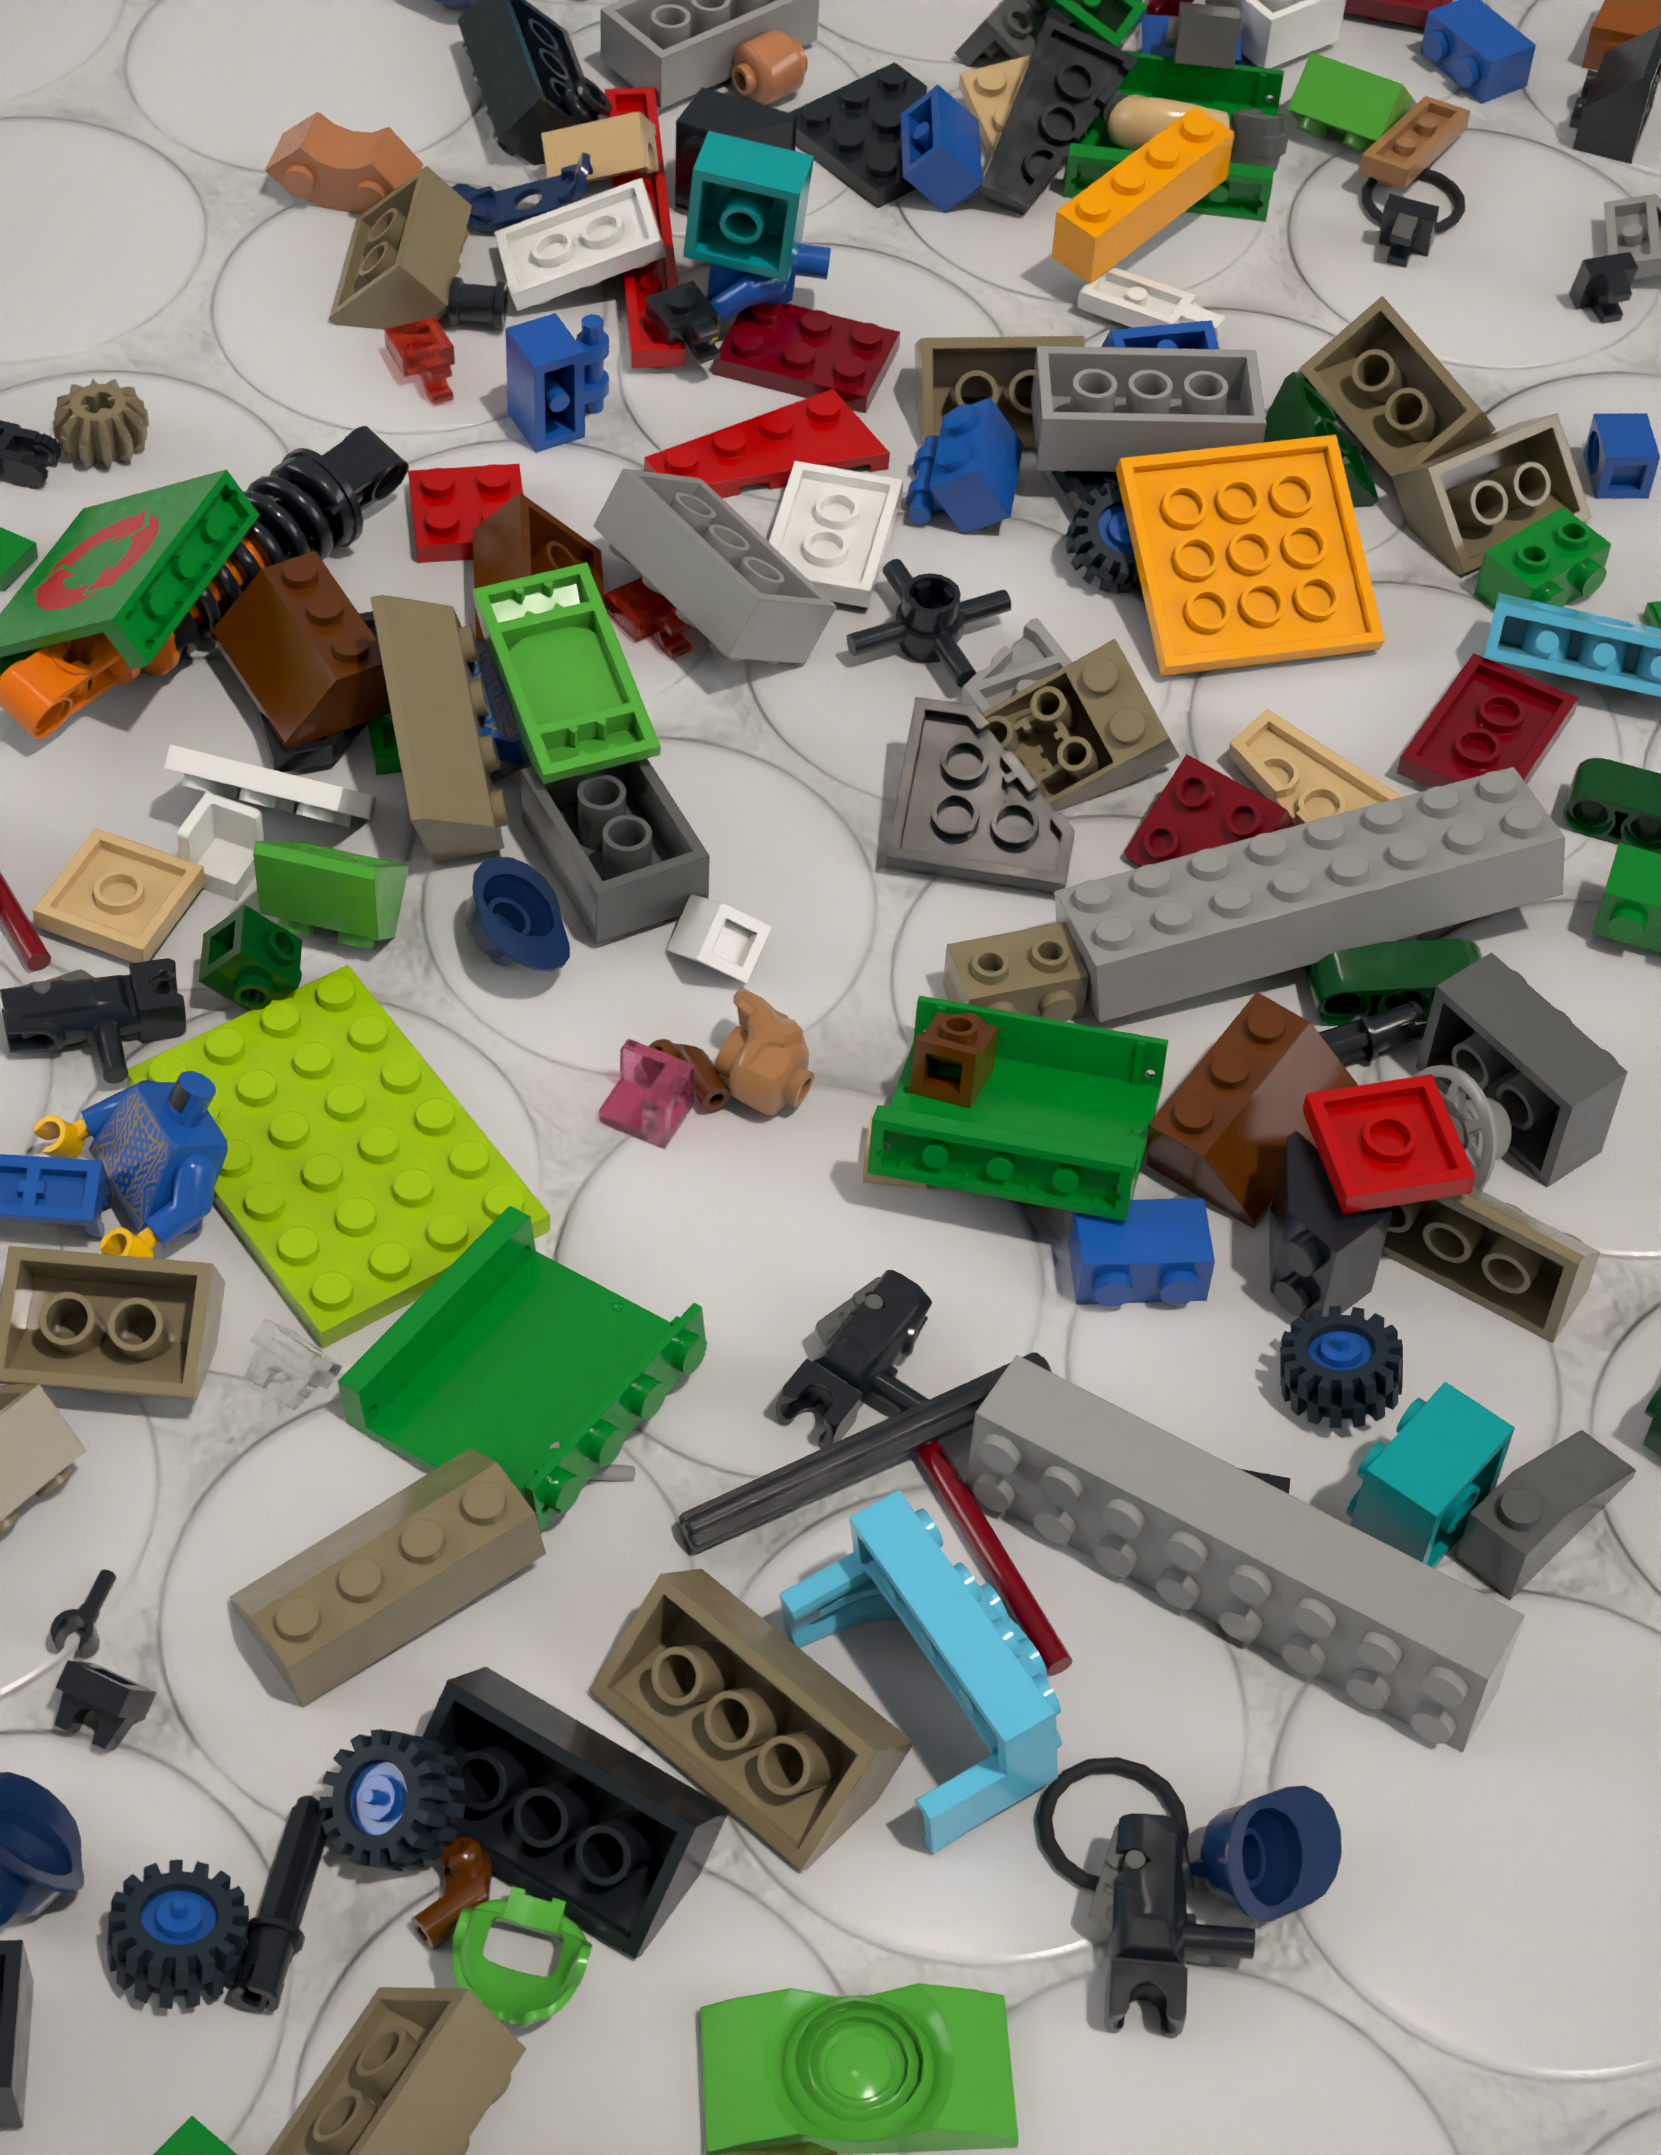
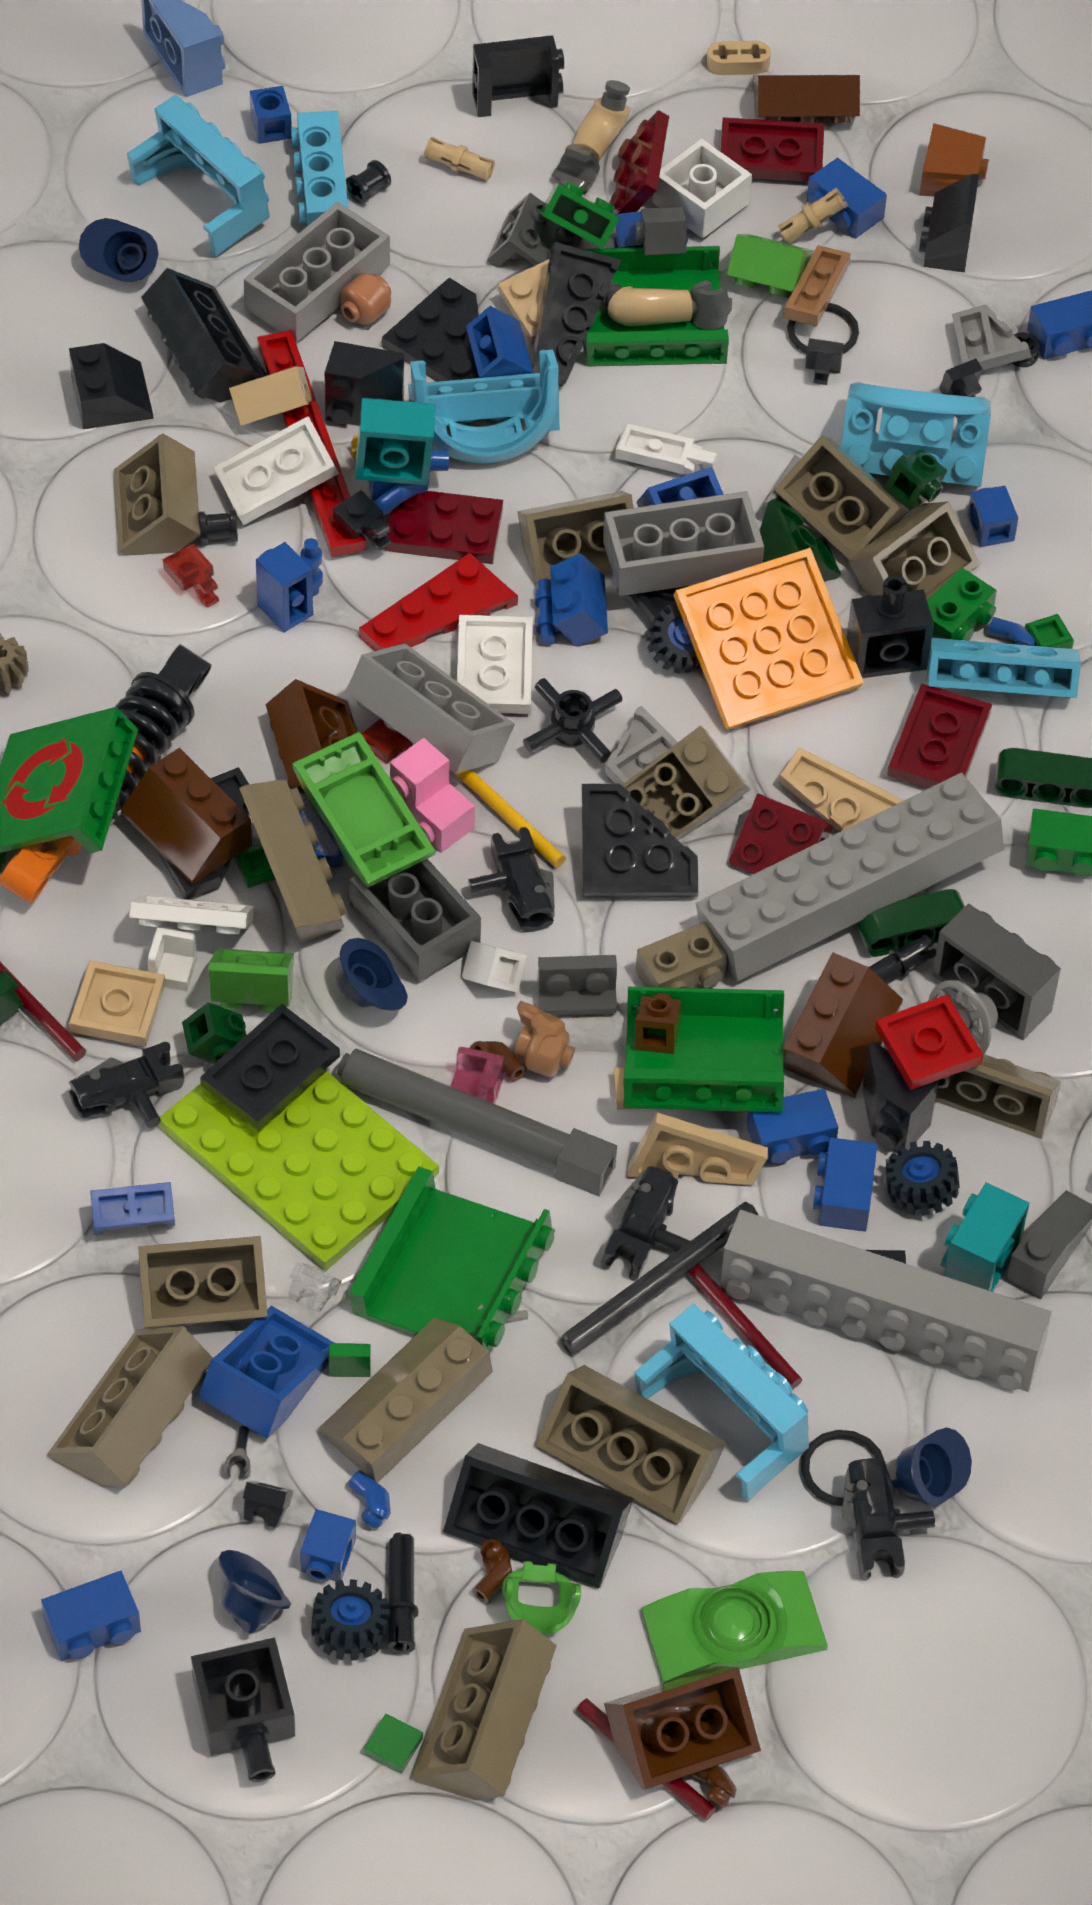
camera: 10 degrees left, 5 degrees up
(157, 1156) = (201, 1172): blue torso -> none
(168, 1487) = (266, 1371): none -> blue slope
(180, 1798) = (327, 1546): none -> blue brick
(290, 1732) = (375, 1496): none -> blue arm
(312, 1492) = (349, 1360): none -> green tile
(317, 1019) = (270, 1067): none -> black plate
(340, 165) = (96, 432): nougat brick -> none
(375, 95) = (108, 386): none -> black slope
(392, 1800) = (448, 1526): black wheel -> none
(455, 501) = (248, 684): red plate -> none
(498, 210) = (250, 429): dark blue piece -> none
(586, 101) = (250, 353): black bush -> none
(674, 669) = (424, 785): none -> bright pink brick
(774, 1237) = (576, 1157): none -> dark grey brick
(800, 833) = (527, 885): none -> black piece
(803, 739) = (511, 816): none -> yellow bar
(842, 981) = (577, 984): none -> dark grey bracket
(922, 206) = (463, 401): none -> medium azure piece
(974, 1263) = (697, 1151): none -> tan wing
(1142, 194) = (646, 372): light orange brick -> none
(1212, 1355) = (847, 1184): none -> blue brick
(1428, 55) = (812, 215): none -> tan pin
(1439, 569) = (890, 630): none -> black brick
(1514, 382) = (915, 479): none -> dark green brick
(1532, 301) = (915, 422): none -> medium azure piece
(1620, 606) = (1010, 631): none -> blue arm

